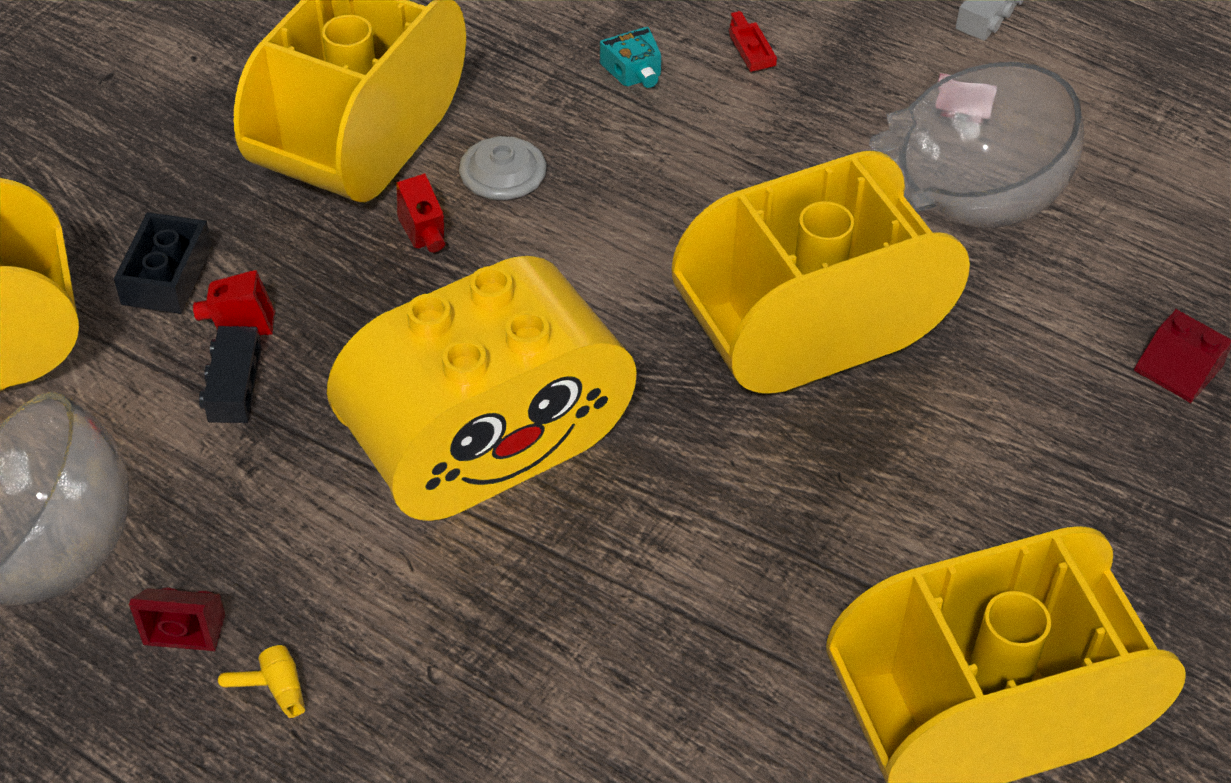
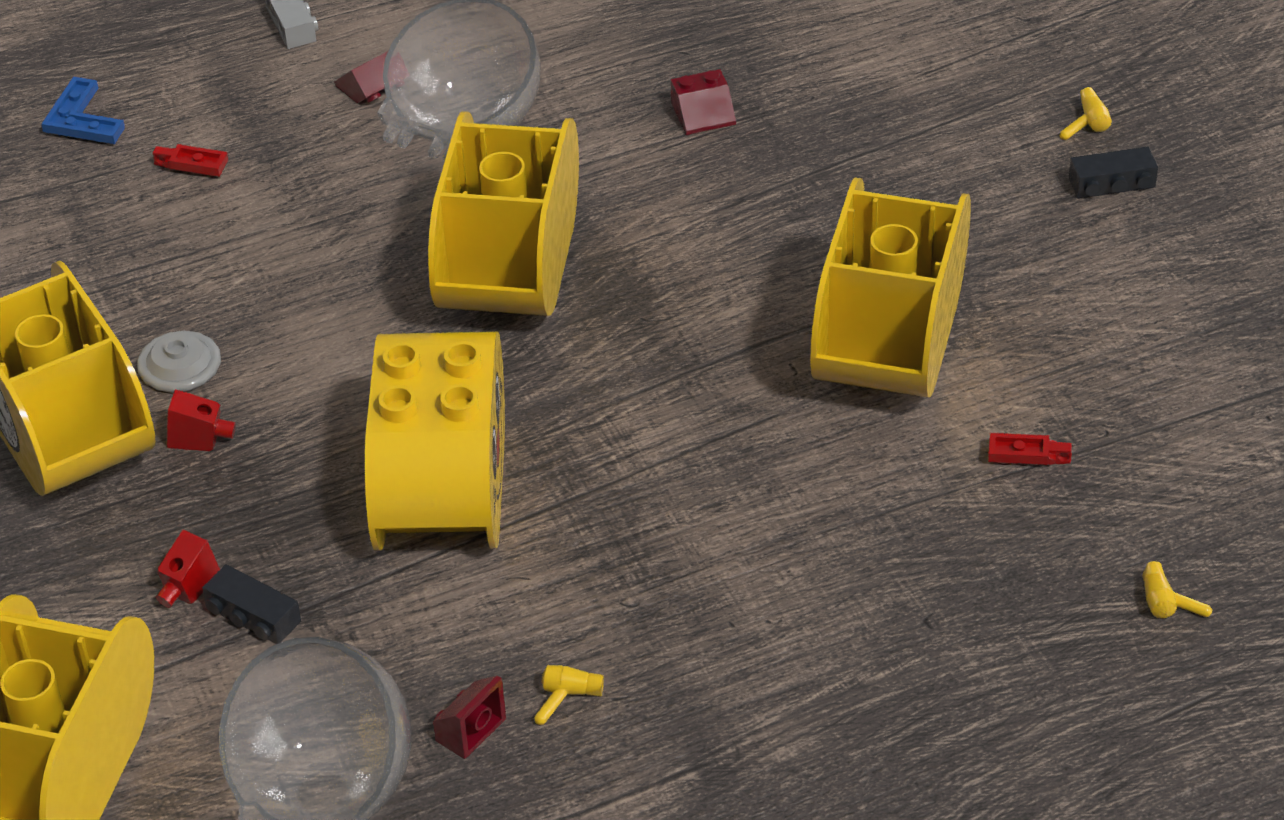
camera: 55 degrees left, 5 degrees down
(163, 263) = (89, 593): black brick -> none
(632, 57) = (141, 231): teal torso -> none

